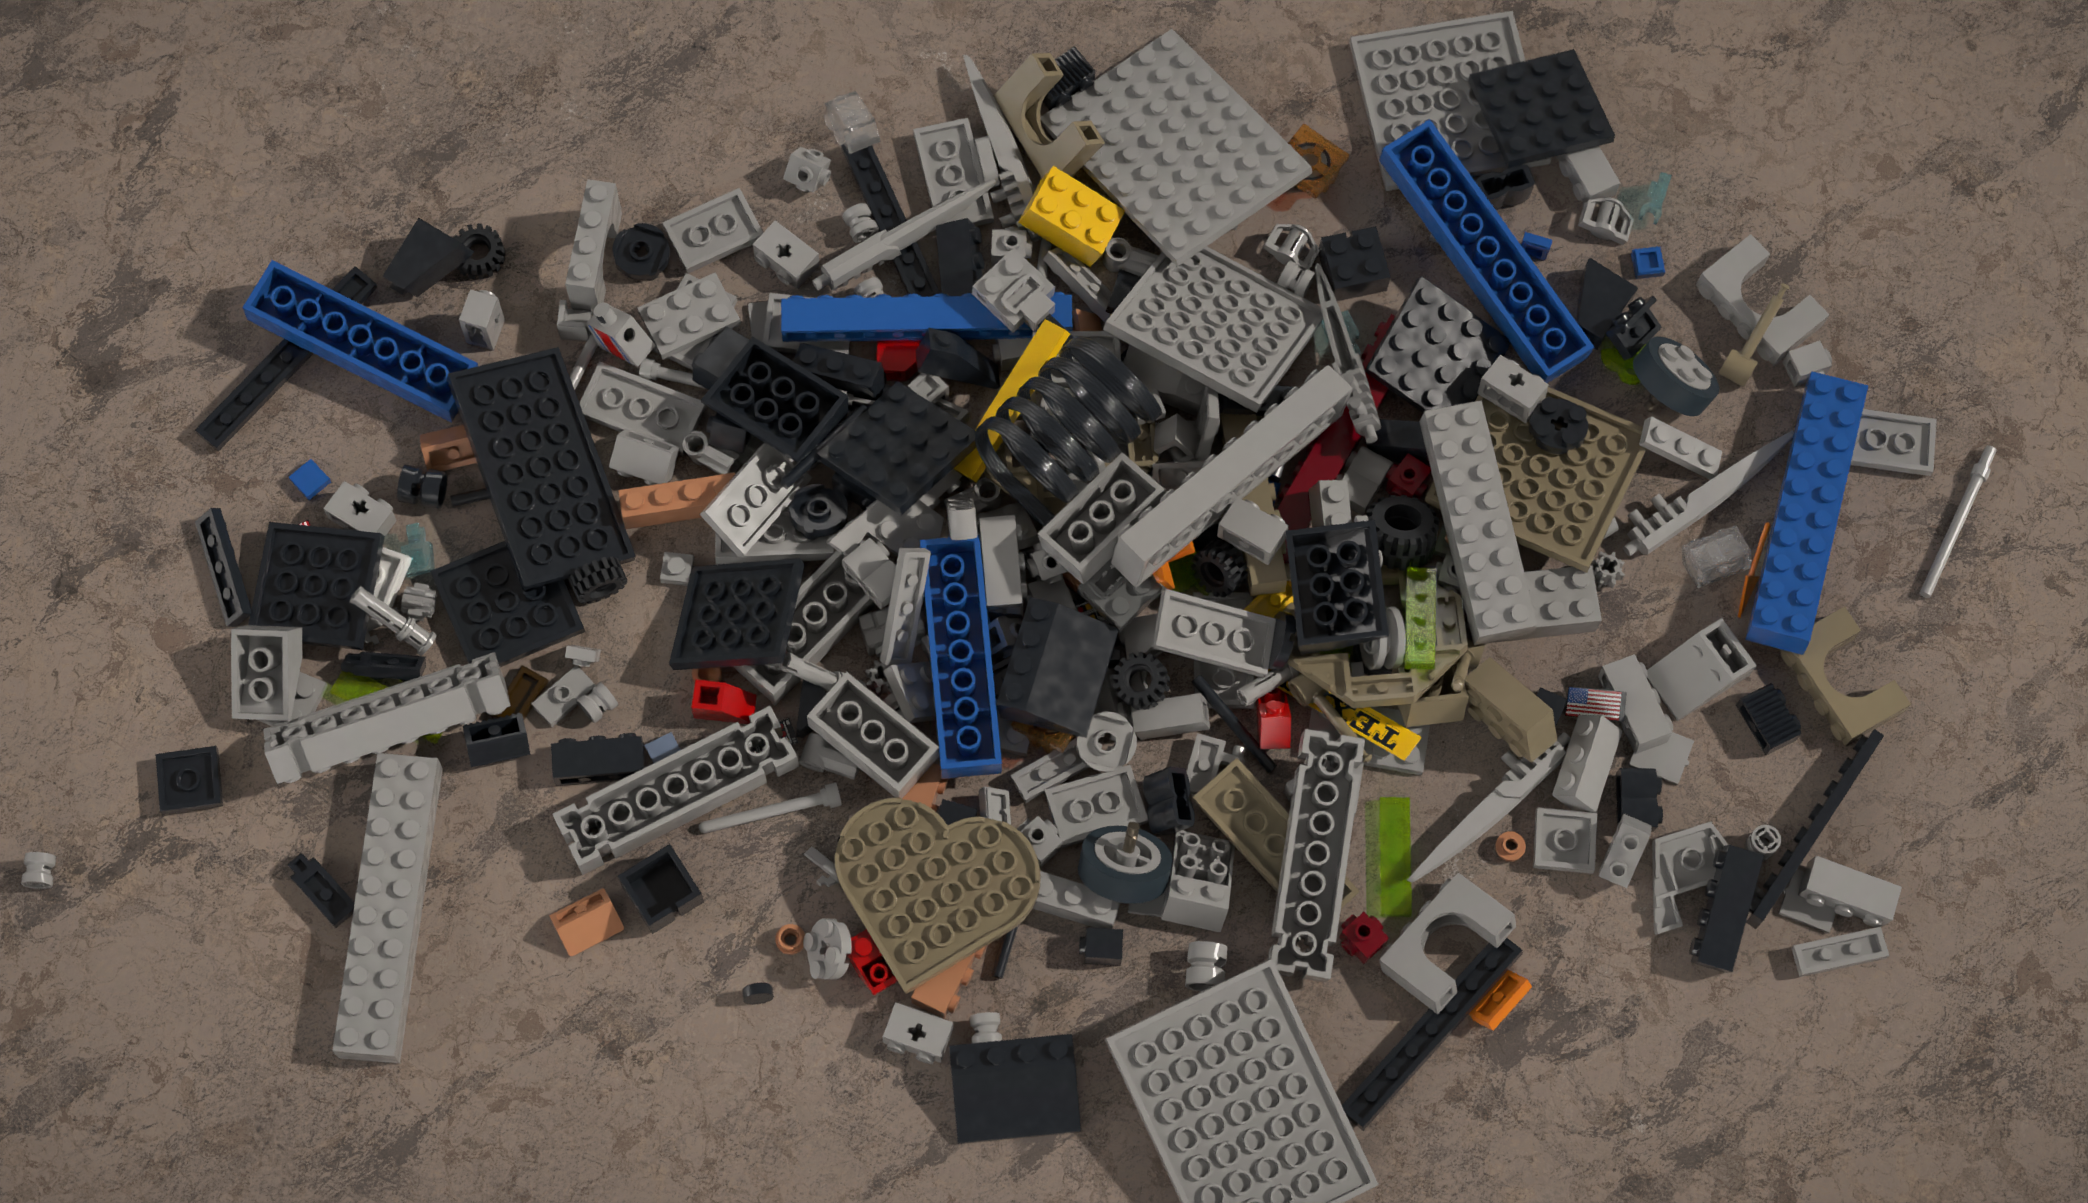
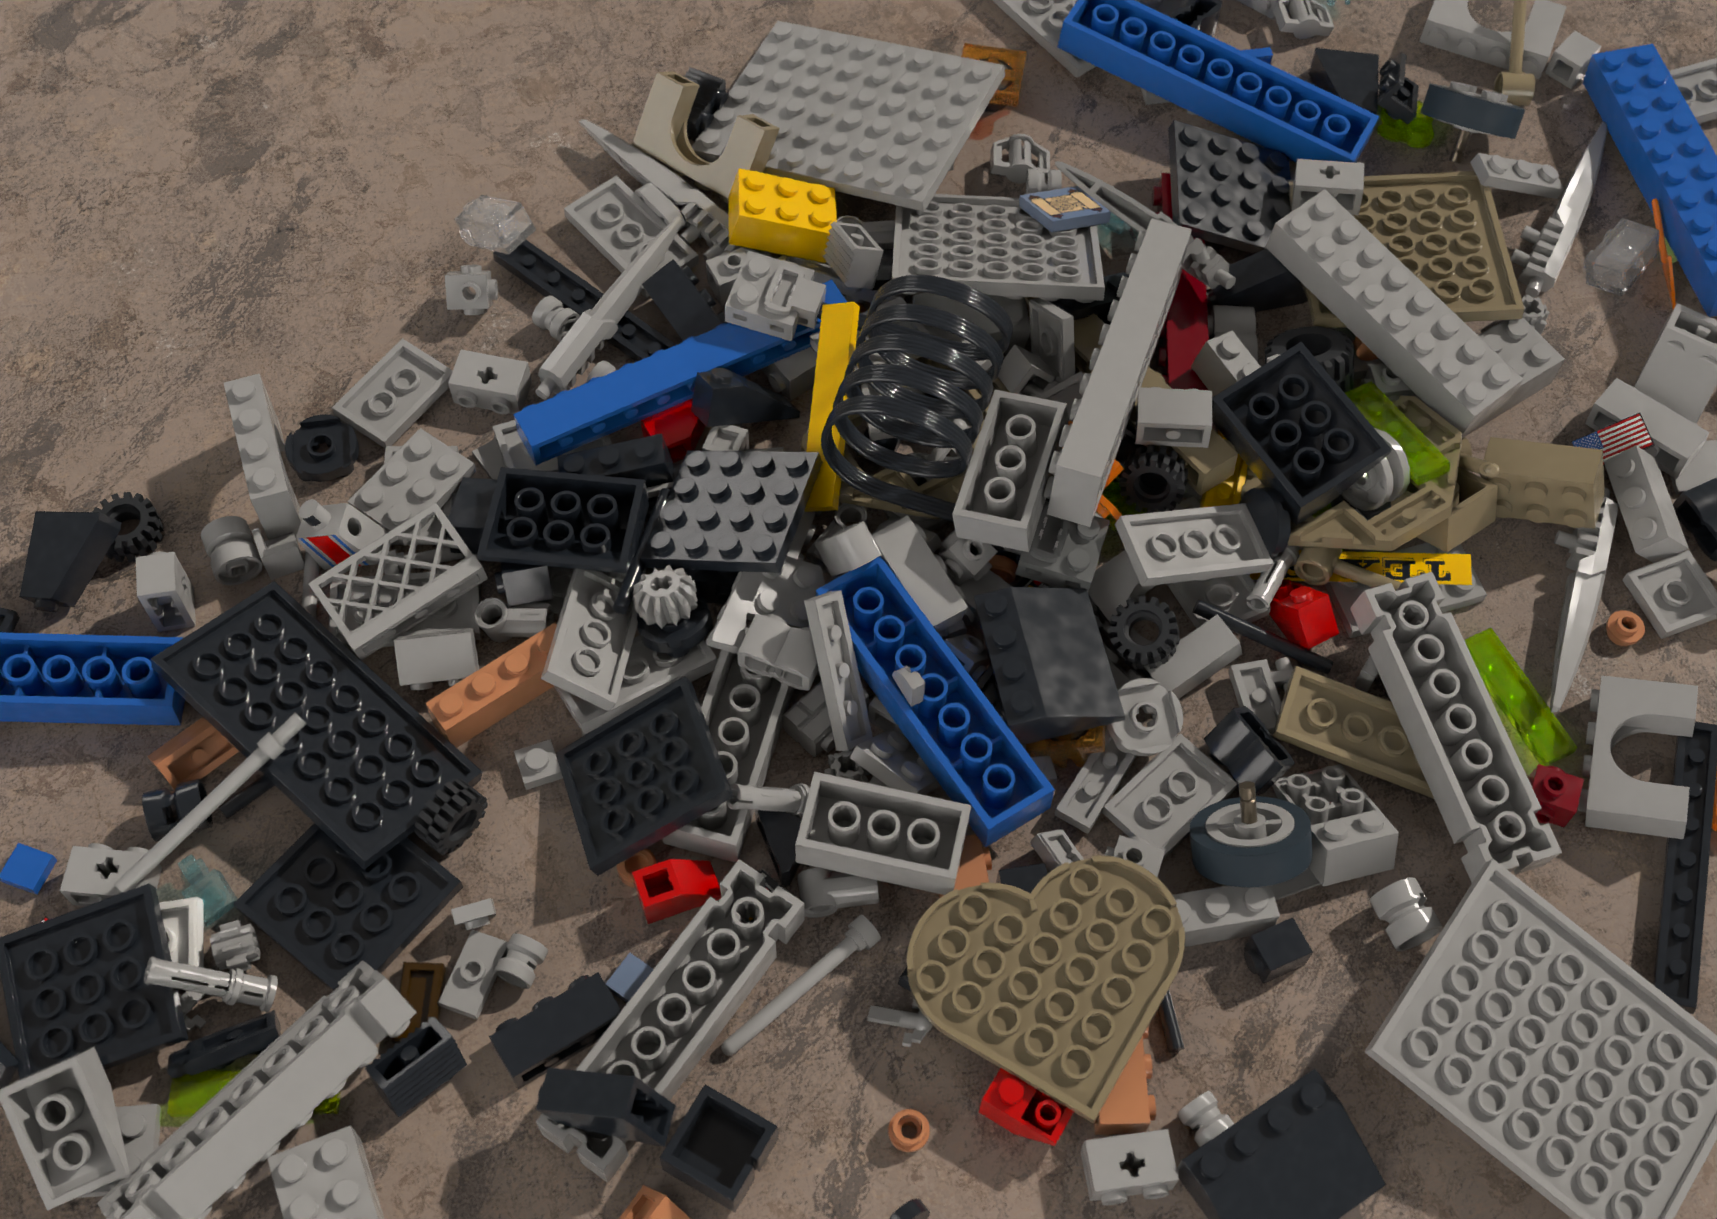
camera: 25 degrees left, 10 degrees down
(496, 477) = (269, 747): none -> light grey bar
(541, 306) = (231, 550): none -> light grey wheel
(598, 826) = (606, 1105): none -> black slope
(648, 413) = (414, 607): none -> light grey fence
(818, 491) = (665, 596): none -> light grey gear
(828, 949) = (949, 1123): light grey plate -> none
(943, 642) = (910, 684): none -> light grey tile
(1102, 279) = (853, 256): none -> light grey brick
(1292, 311) = (1064, 209): none -> sand blue tile
(1354, 263) = (1094, 144): black piece -> none
(1408, 478) = (1278, 313): dark red brick -> none
(1561, 411) = (1383, 190): black plate -> none
(1648, 262) = (1364, 38): blue tile -> none

